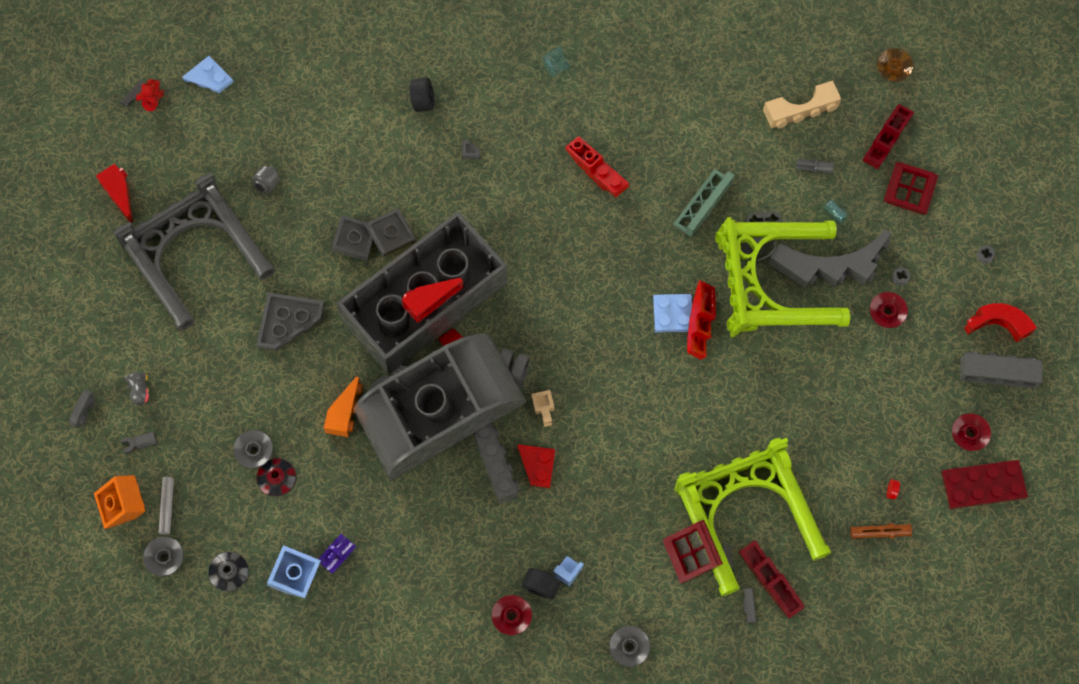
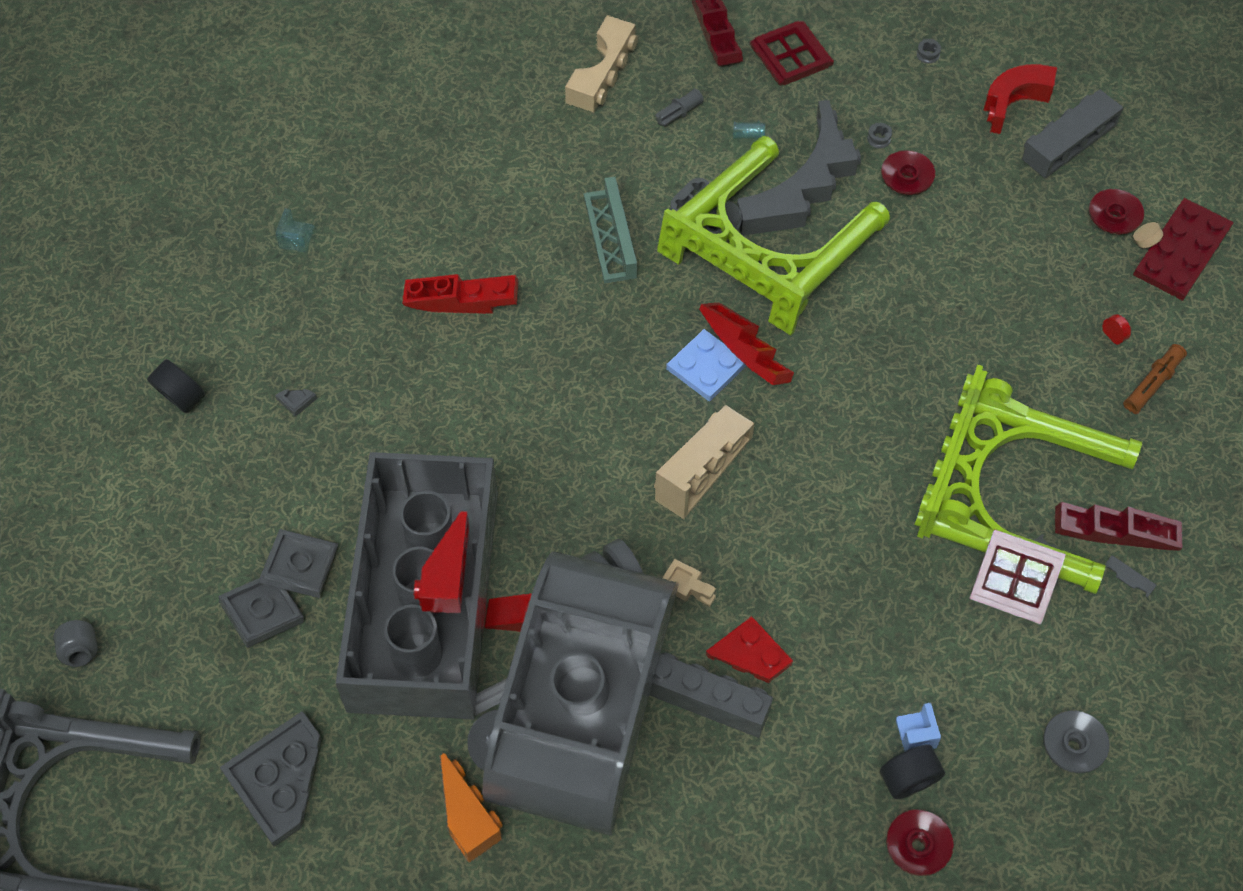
camera: 45 degrees left, 10 degrees down
(614, 357) = (702, 461): none -> tan wedge
(972, 459) = (1148, 235): none -> tan tile

